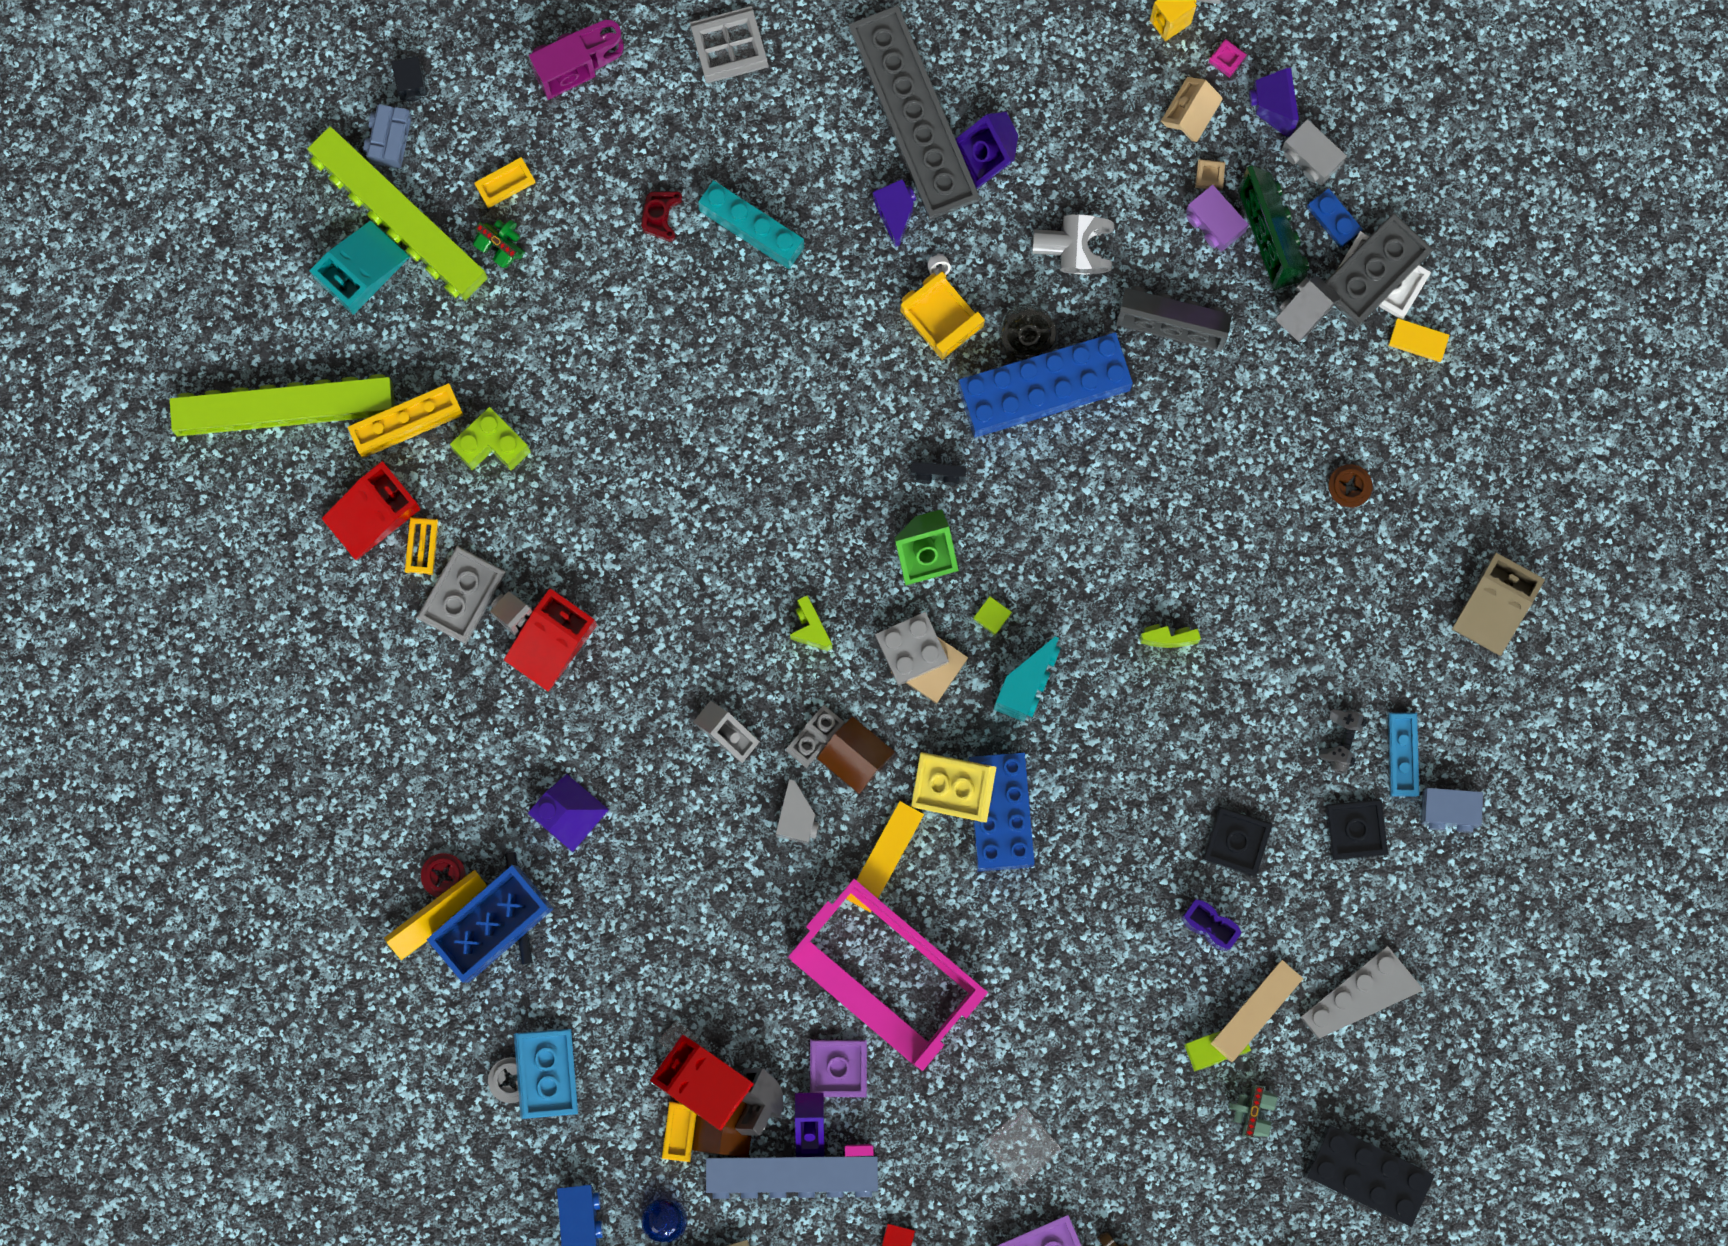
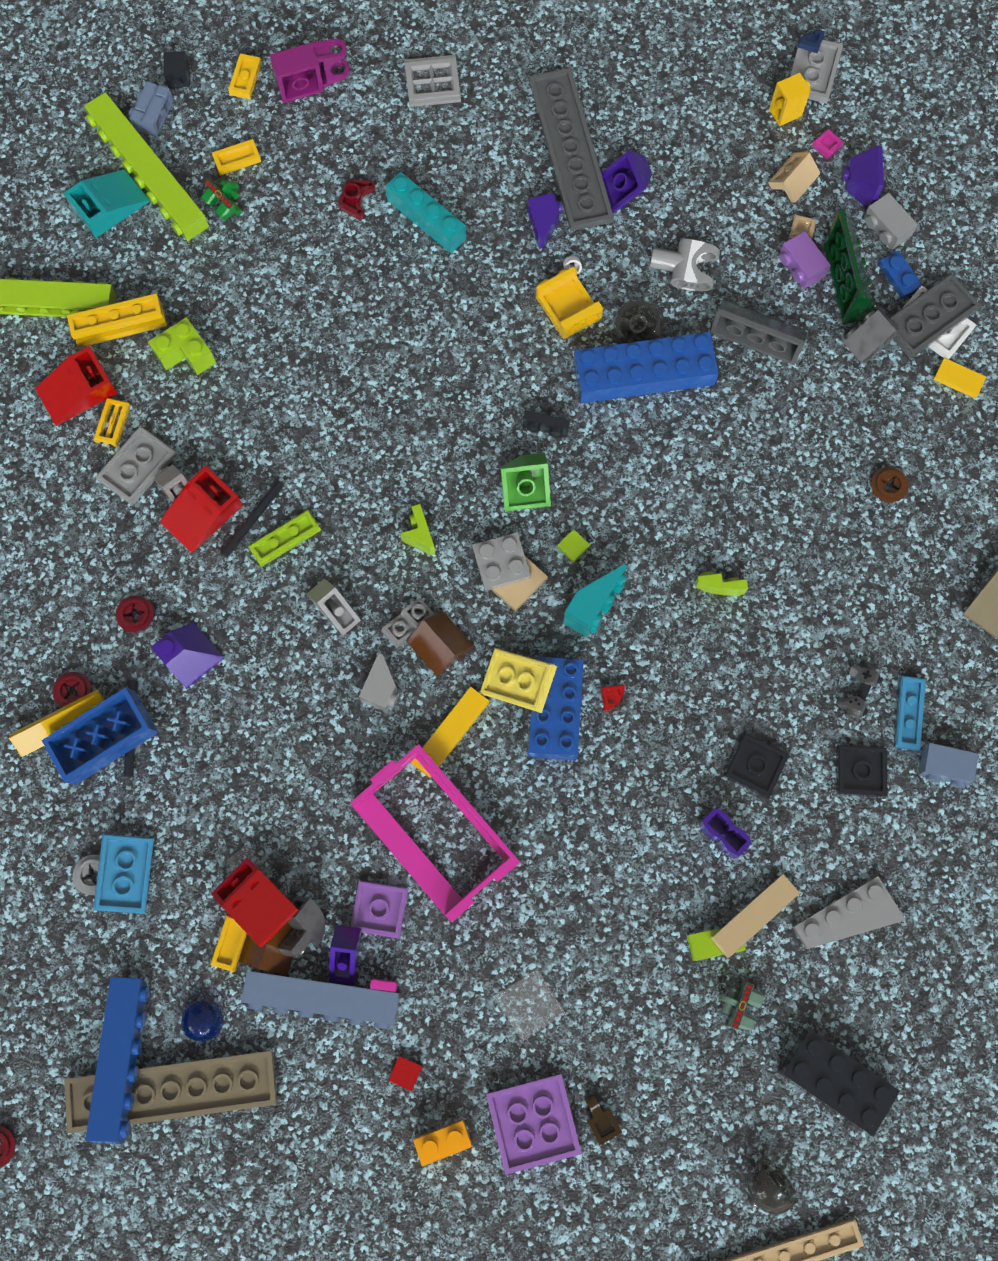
camera: 10 degrees right, 5 degrees down
(485, 769) = (126, 608): none -> dark red gear
(495, 74) = (245, 76): none -> yellow plate
(611, 639) = (252, 518): none -> black bar
(653, 657) = (284, 538): none -> lime tile
(1062, 787) = (611, 696): none -> red tile

